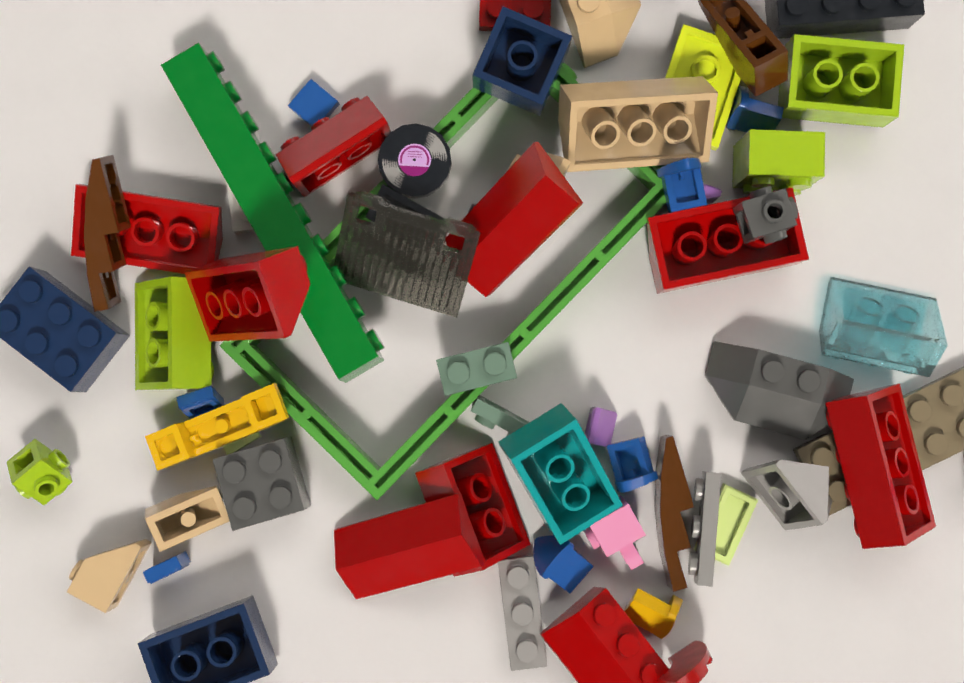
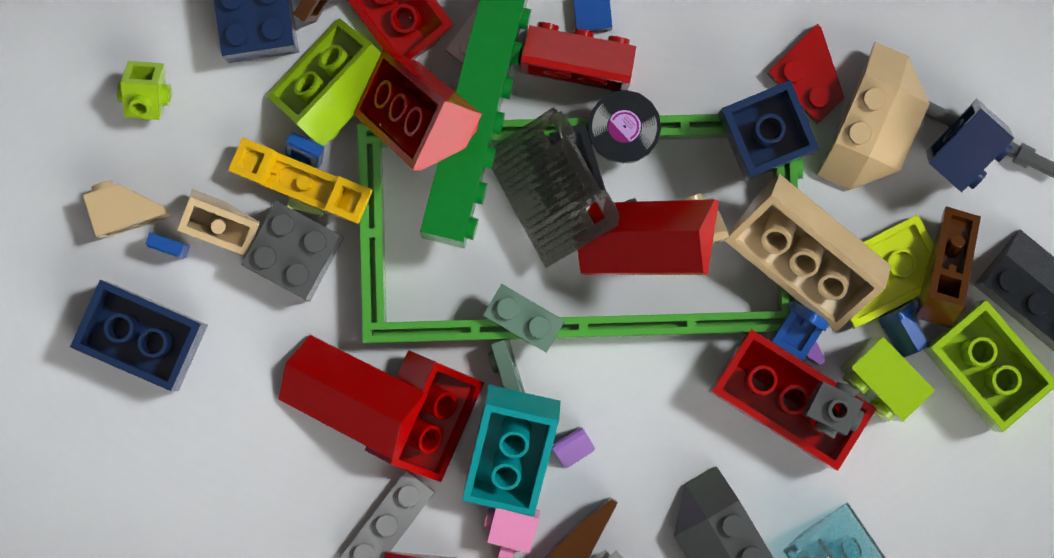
camera: 45 degrees right, 0 degrees up
(560, 562) = (449, 515): blue tile -> none
(631, 464) = (569, 494): blue tile -> none

